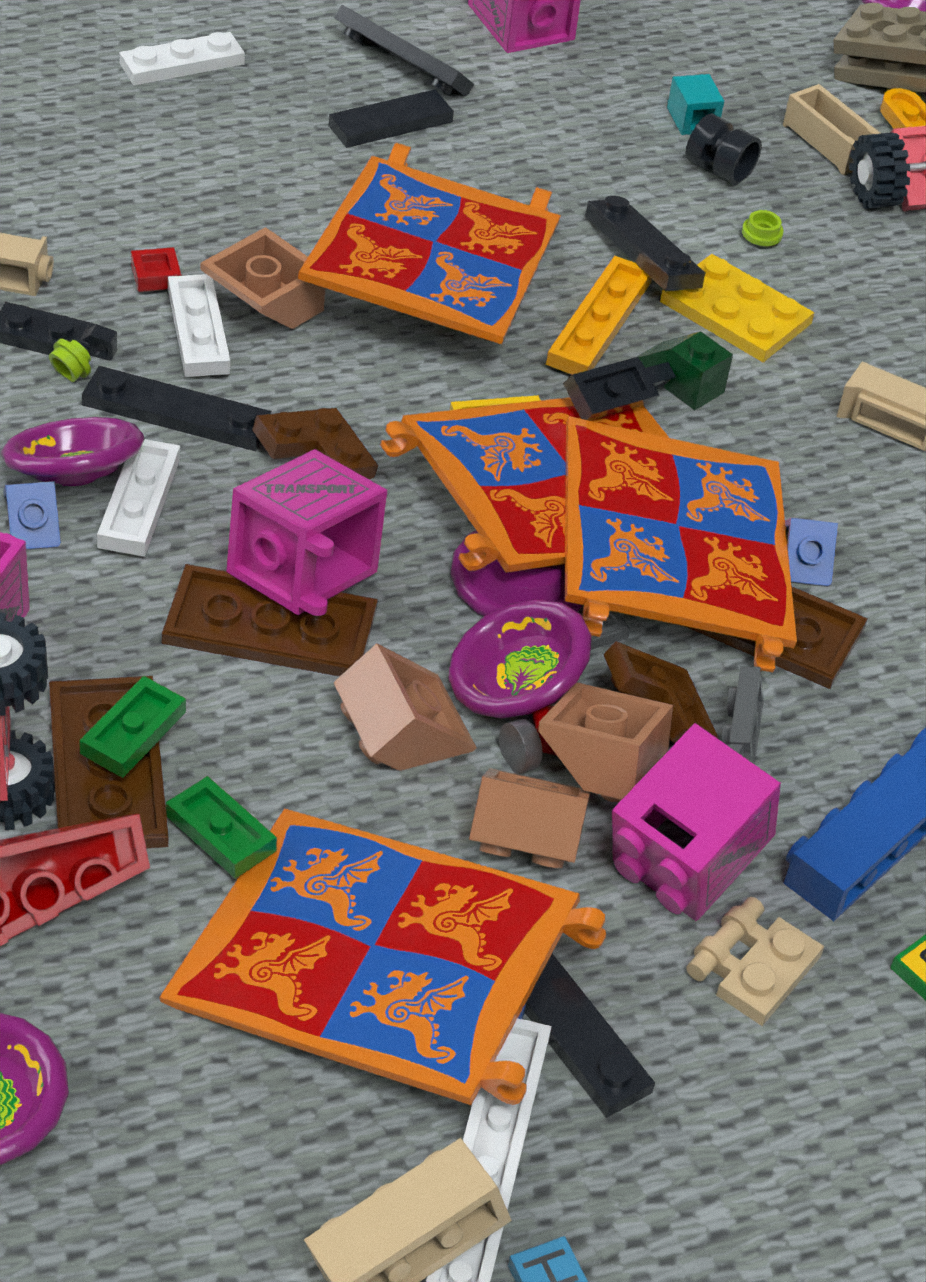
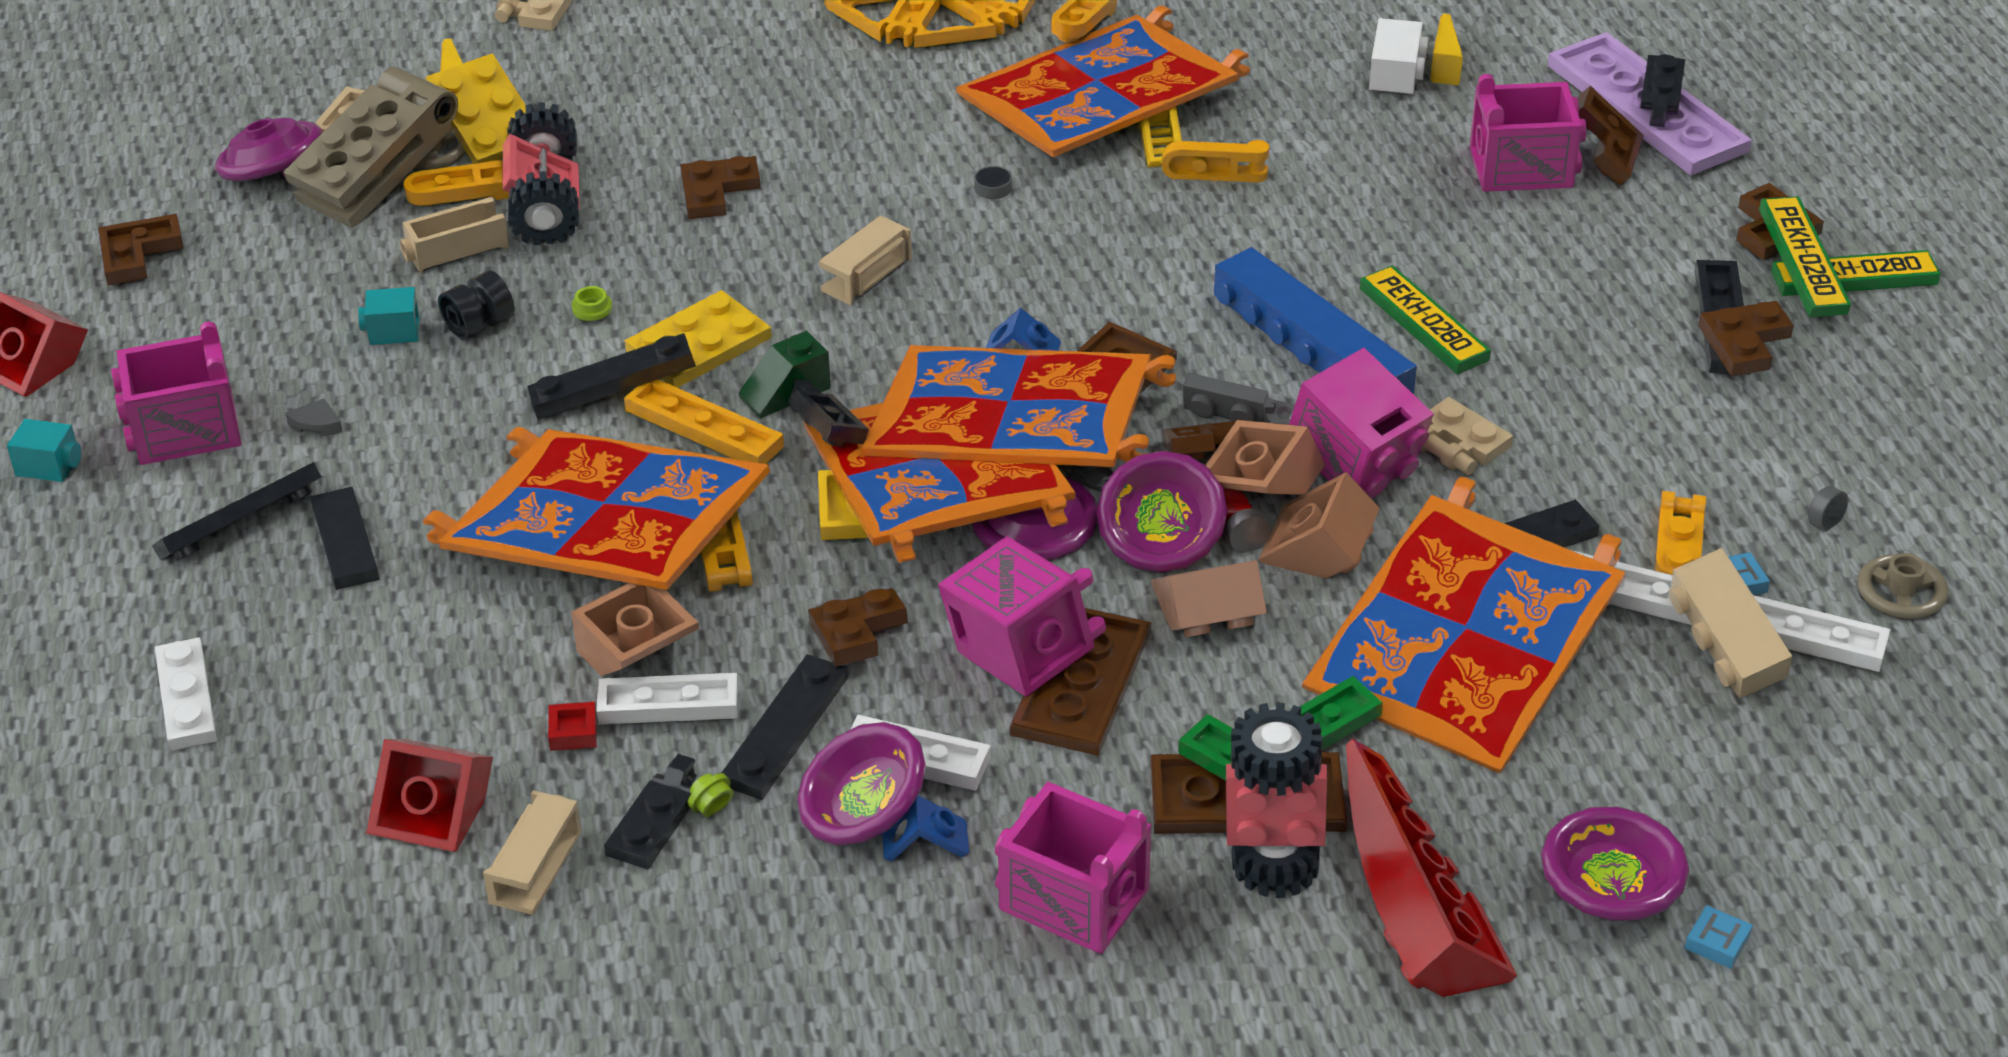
camera: 75 degrees left, 5 degrees down
(65, 191) = (427, 793): none -> red slope
(415, 345) = (727, 548): none -> light orange plate
(548, 84) = (315, 417): none -> dark grey tile
(612, 1208) = (1679, 536): none -> light orange plate

